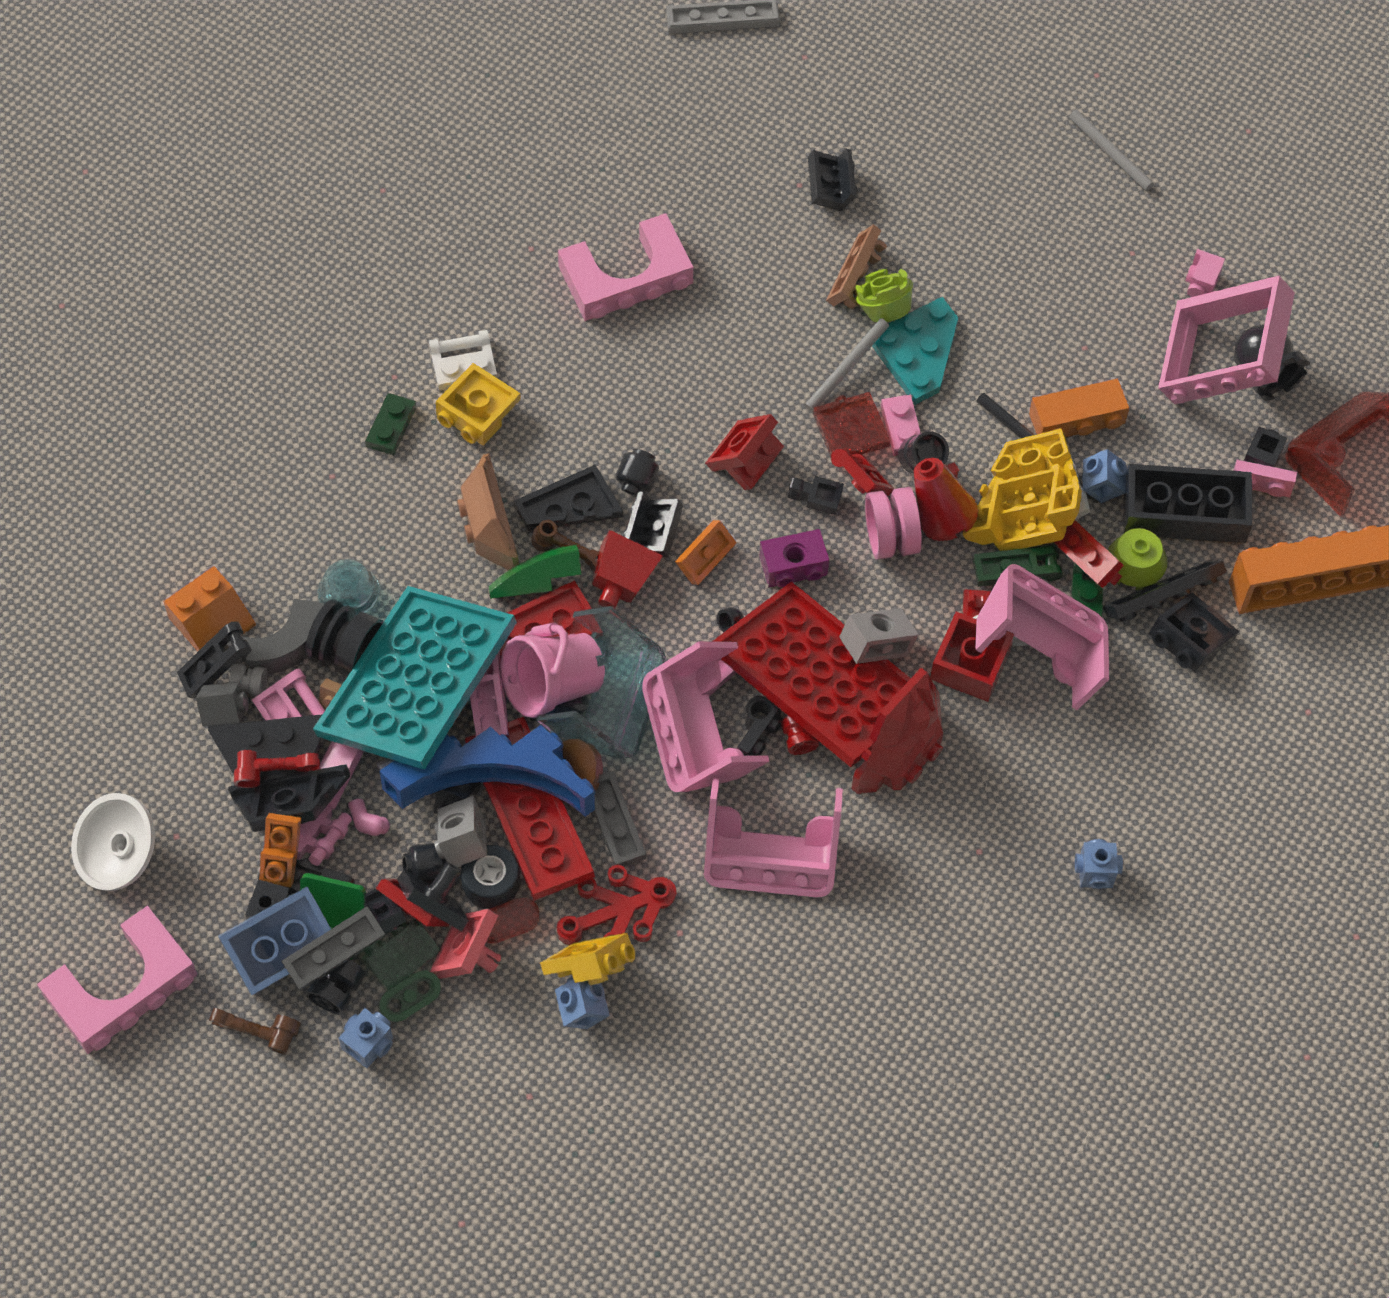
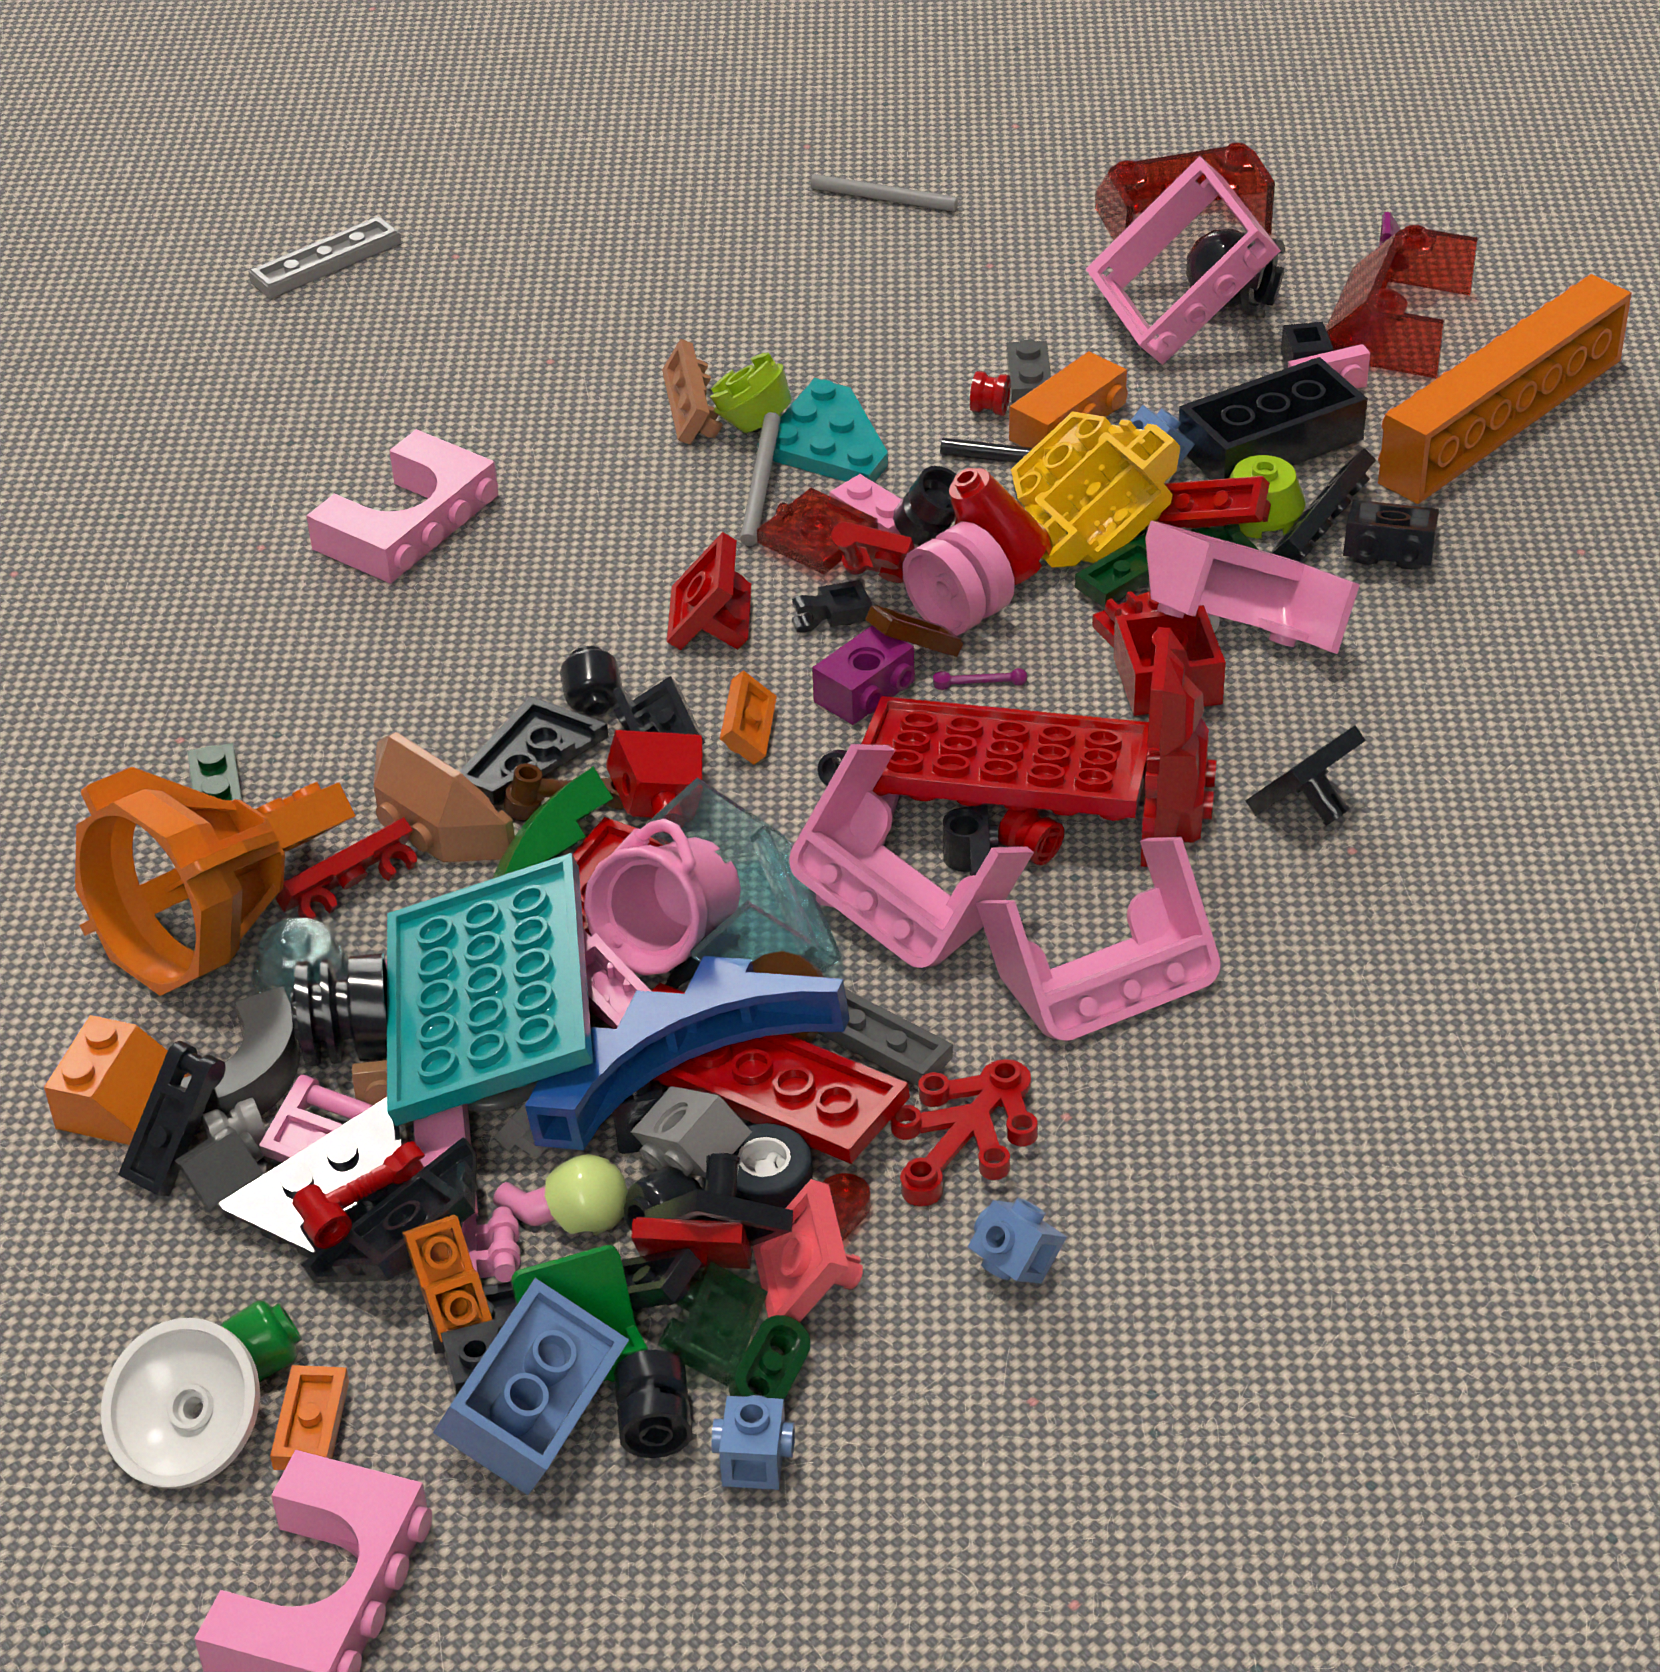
camera: 30 degrees left, 20 degrees down
(174, 884) = (310, 1413): none -> orange plate
(177, 823) = (267, 1336): none -> green head
(279, 1034) = (618, 1513): reddish brown brick -> none
(313, 519) = (223, 858): none -> orange plate
(333, 948) = (628, 1339): dark grey plate -> none
(391, 833) = (586, 1194): none -> yellowish green hair
(416, 534) = (347, 869): none -> red plate
(451, 368) = (268, 690): white plate -> none
(476, 404) = (321, 707): yellow plate -> none
(591, 959) = (1002, 1169): yellow plate -> none
(832, 179) = (593, 332): black bracket -> none
(841, 546) = (914, 630): none -> reddish brown tile
(842, 586) = (943, 680): none -> magenta hinge
(878, 635) = (1040, 688): light grey brick -> none
(982, 791) = (1311, 780): none -> black tile
(1038, 373) = (990, 393): none -> red wheel
(1082, 363) = (1027, 366): none -> dark grey plate
(1098, 864) = (1508, 782): medium blue brick -> none
(1204, 273) = (1087, 237): bright pink brick -> none
(1300, 253) = (1135, 185): none -> clear red windscreen

